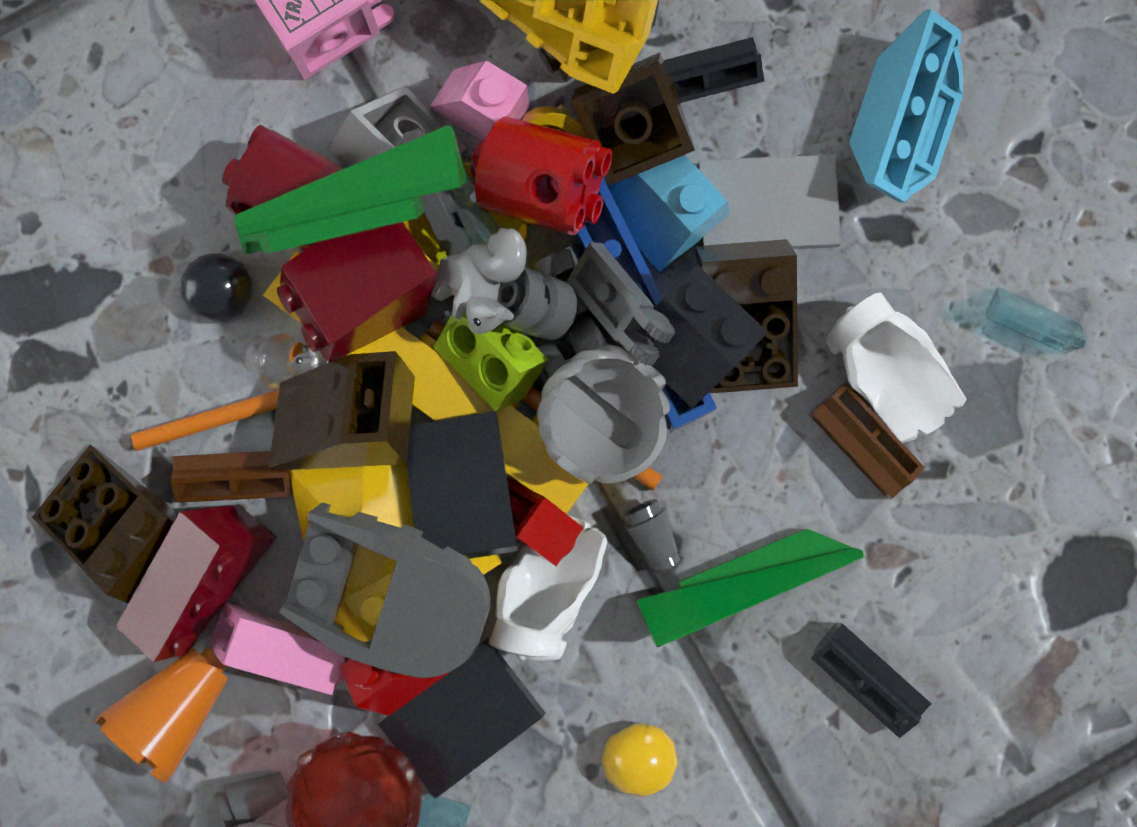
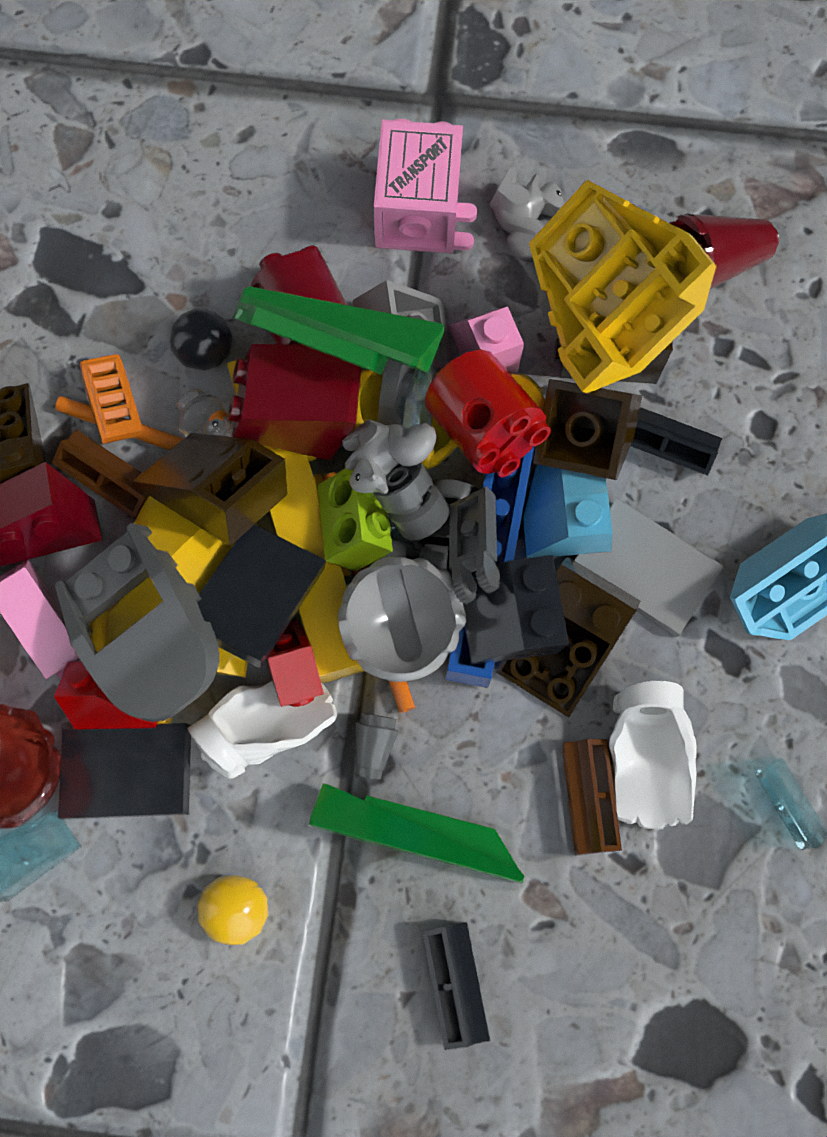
camera: 35 degrees right, 10 degrees down
(158, 387) = (106, 374): none -> orange slope

